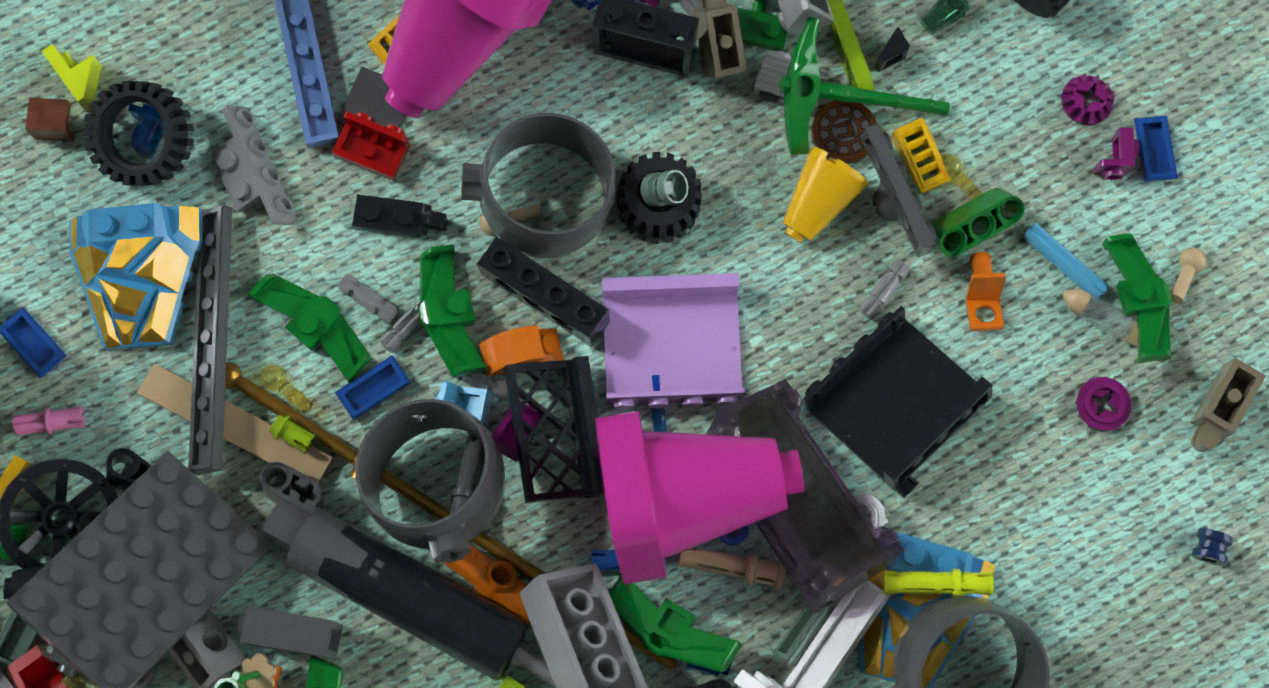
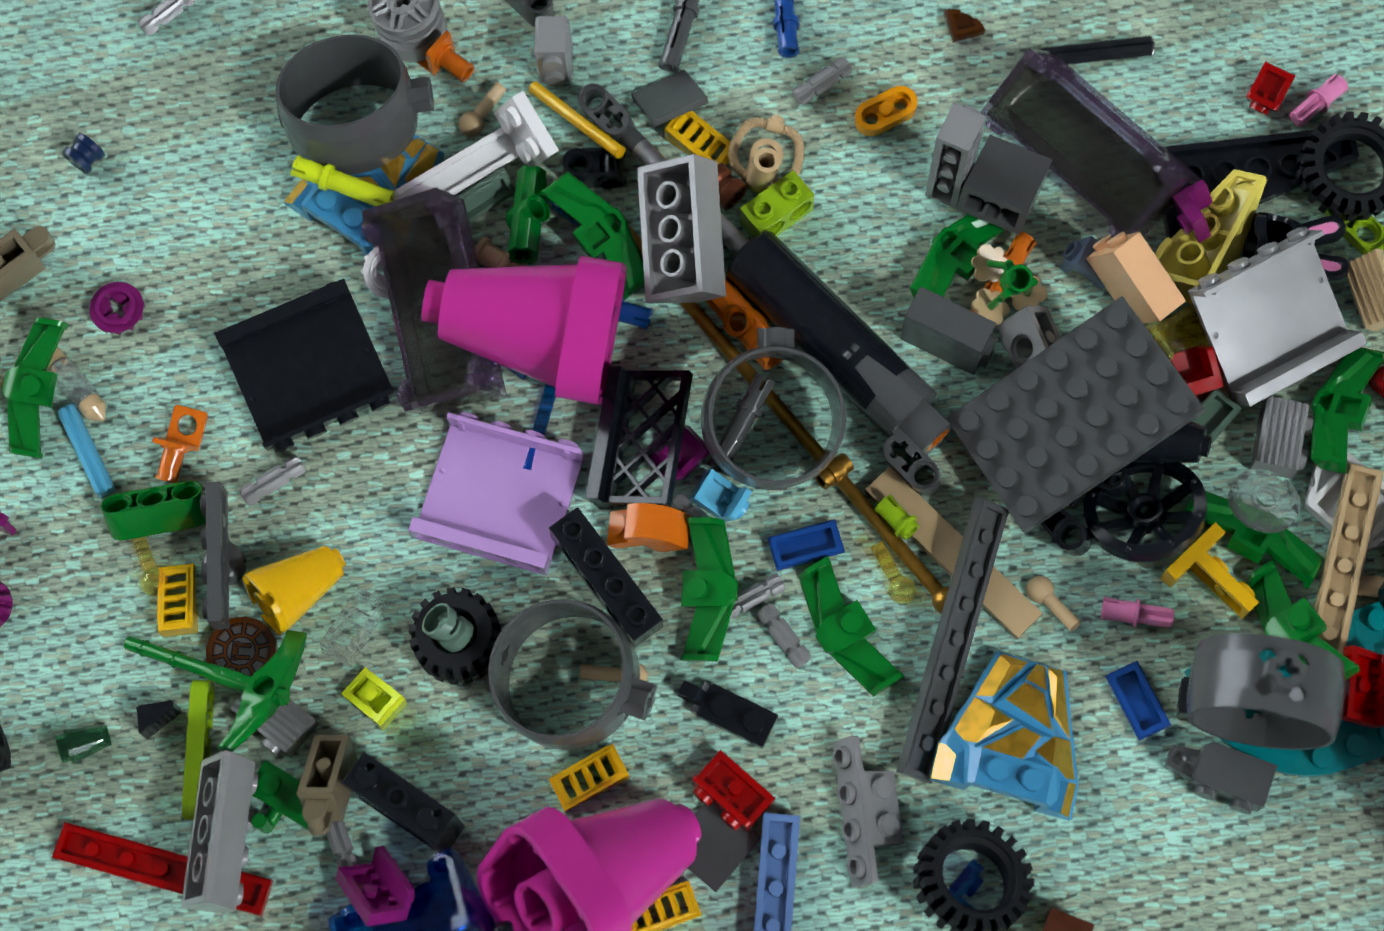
camera: 155 degrees left, 5 degrees down
(144, 418) = (1041, 590): none -> tan bar
(474, 130) = (620, 776): none -> yellow slope
(709, 122) = (374, 698): none -> neon yellow slope
(748, 622) = (527, 215): none -> green piece

